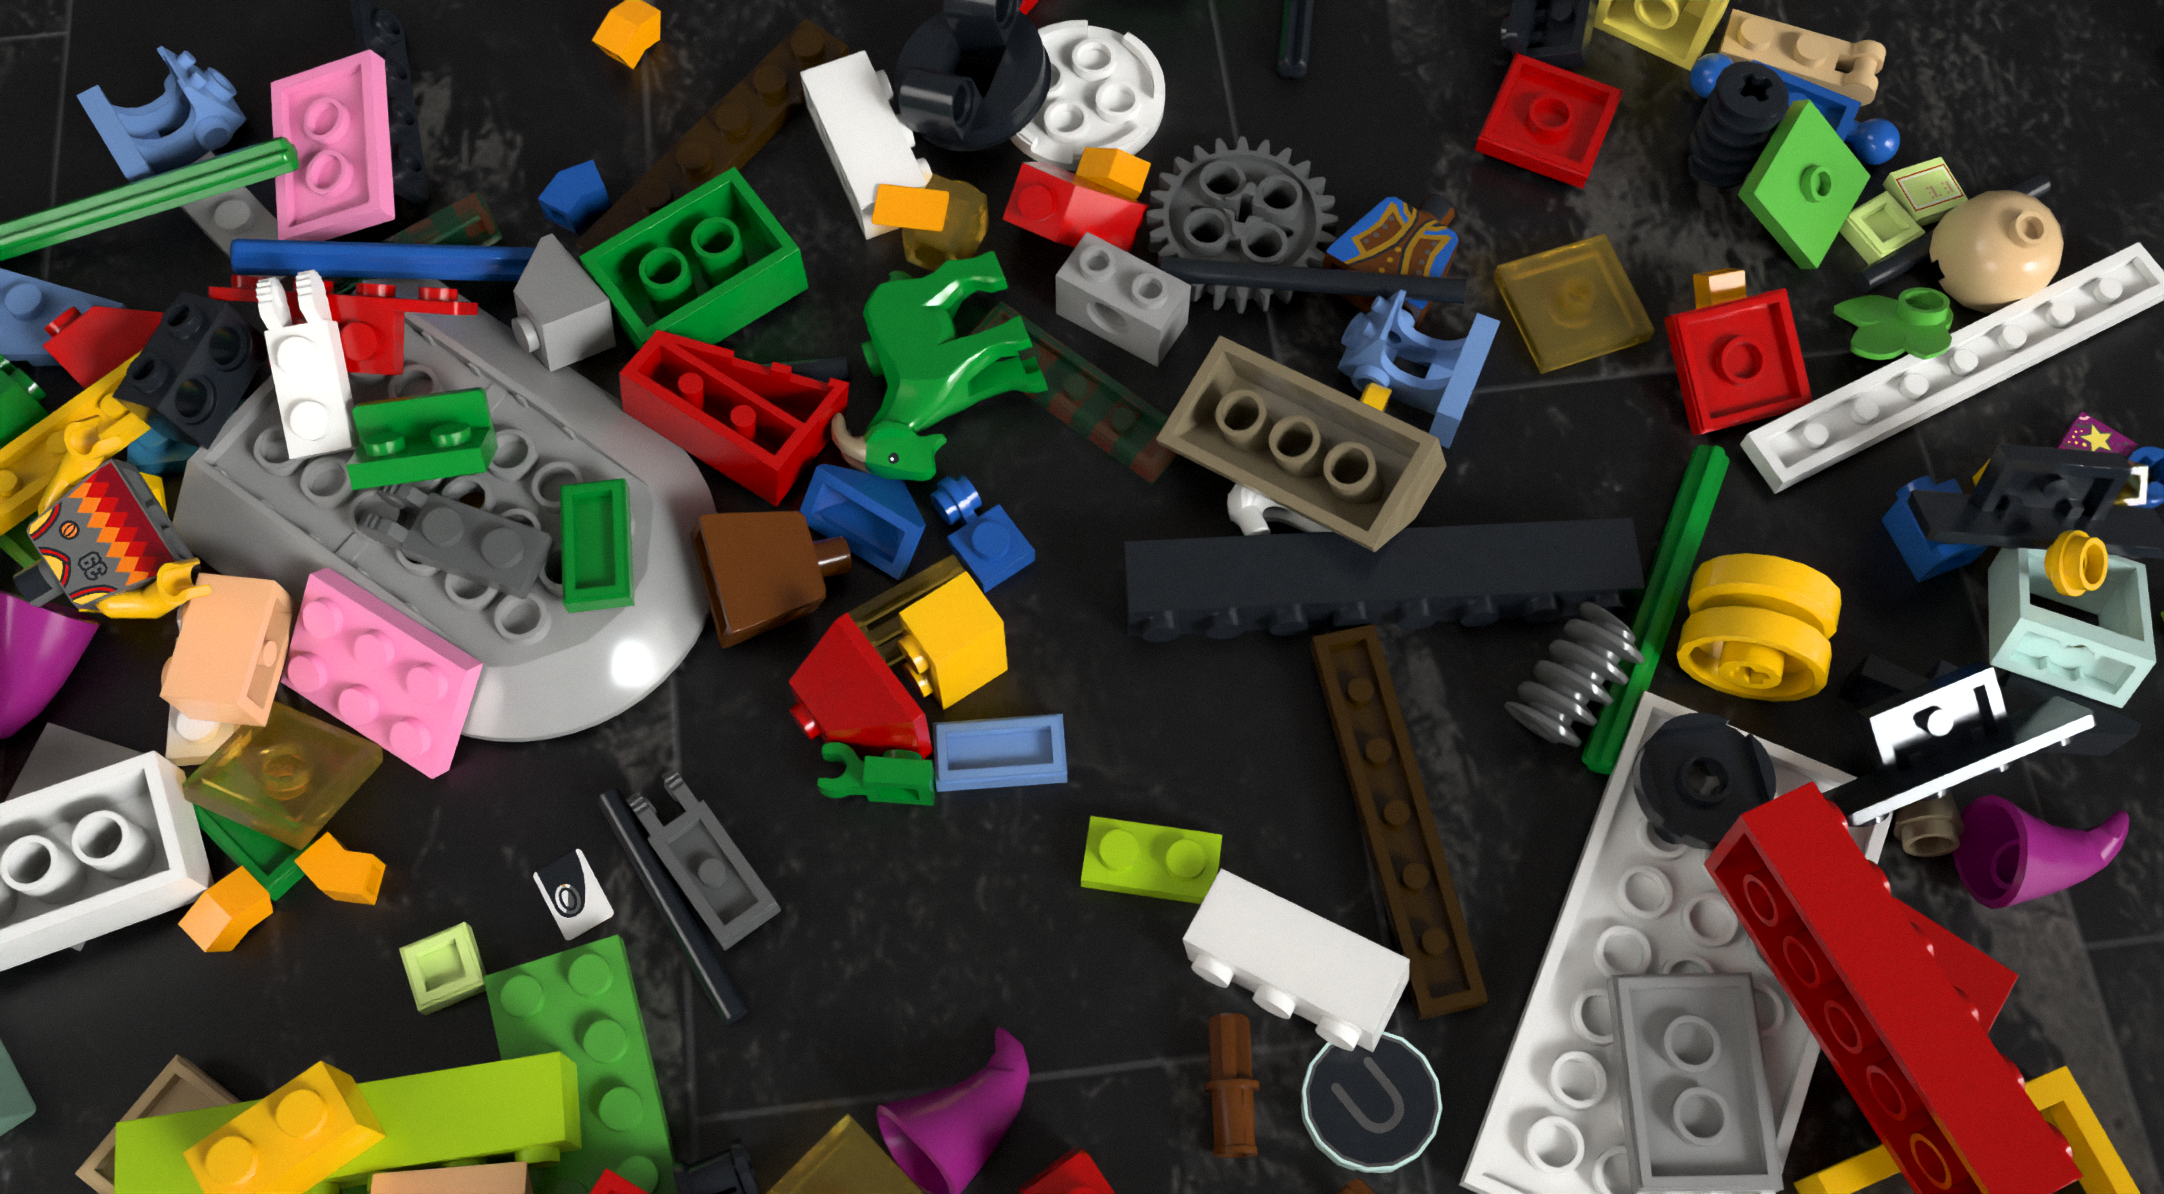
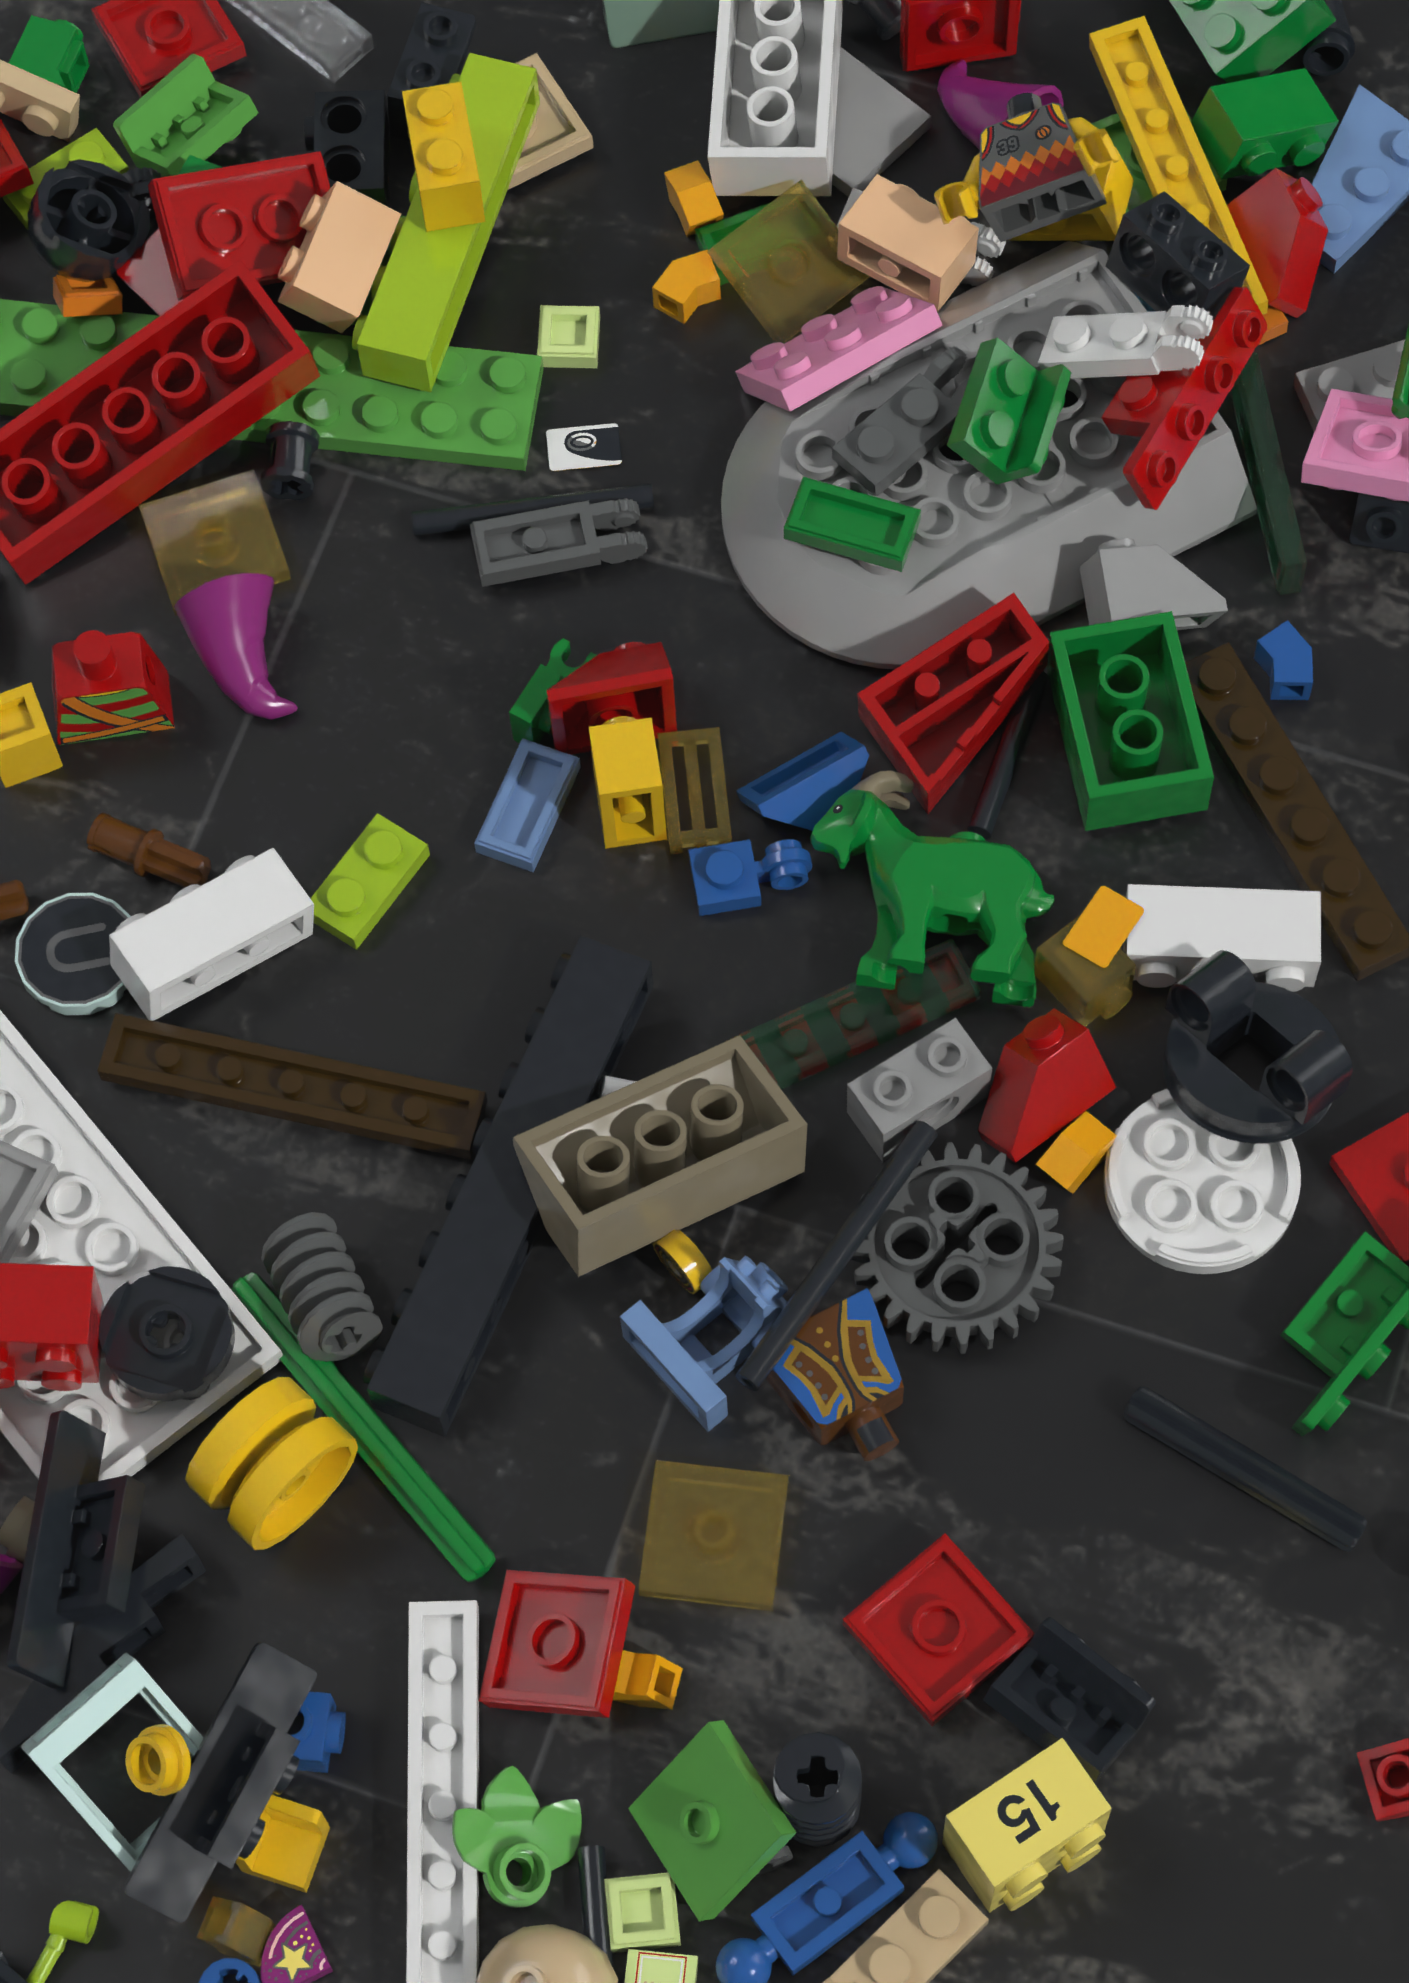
camera: 120 degrees right, 0 degrees up
(378, 260) = (1252, 459): blue axle -> none
(763, 570) = (782, 666): reddish brown torso -> none

